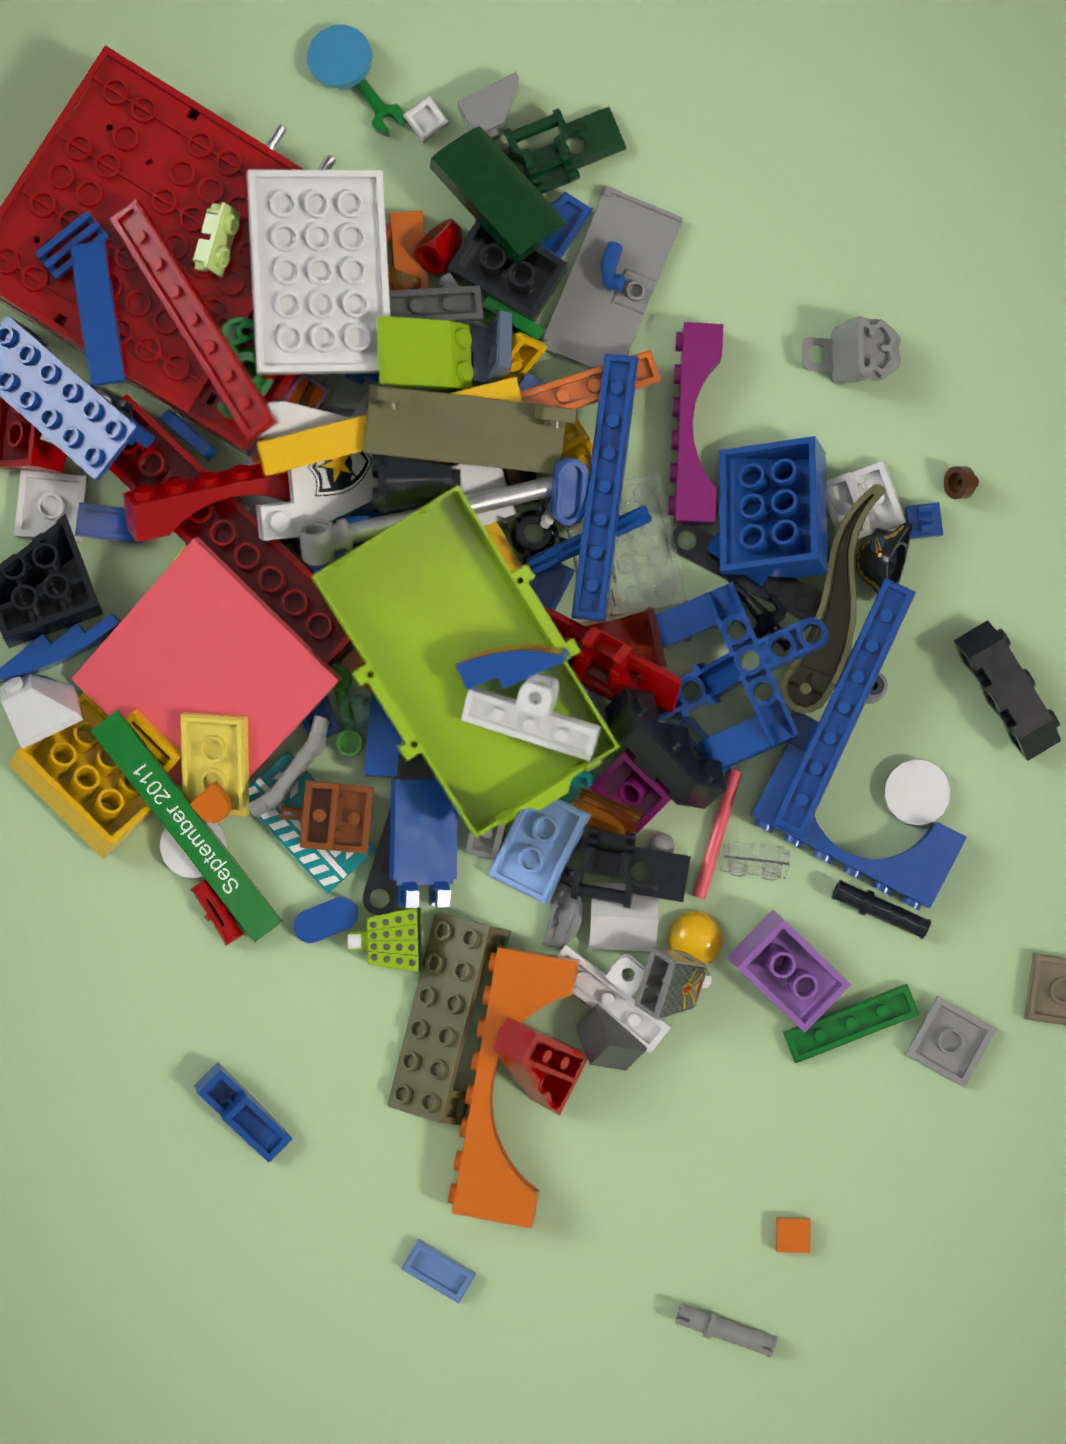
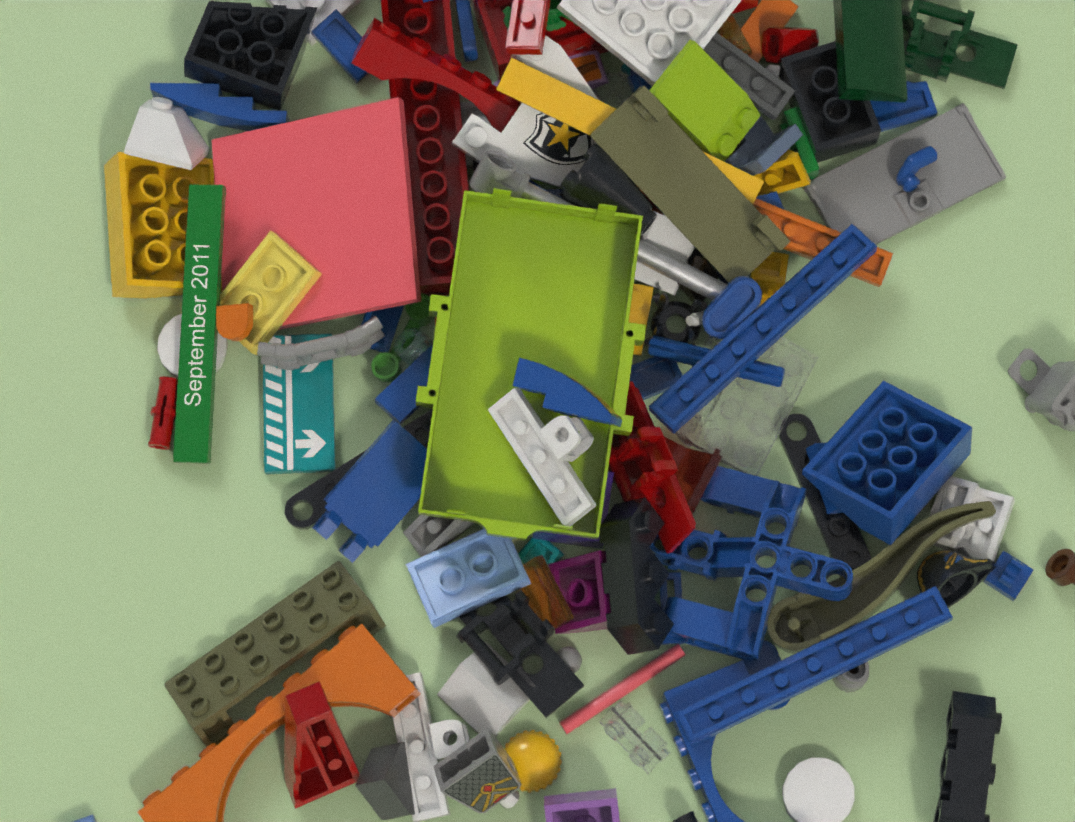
camera: 40 degrees right, 10 degrees down
(158, 737) = (236, 234): yellow tile -> none
(242, 1112) = (44, 590): blue slope -> none
(326, 920) = (245, 492): blue tile -> none
(334, 816) = (322, 412): dark orange plate -> none
(392, 940) = (284, 551): lime torso -> none
(564, 917) = (437, 651): light grey plate -> none
(694, 492) = (928, 295): magenta arch -> none
(766, 621) = (811, 544): black piece -> none

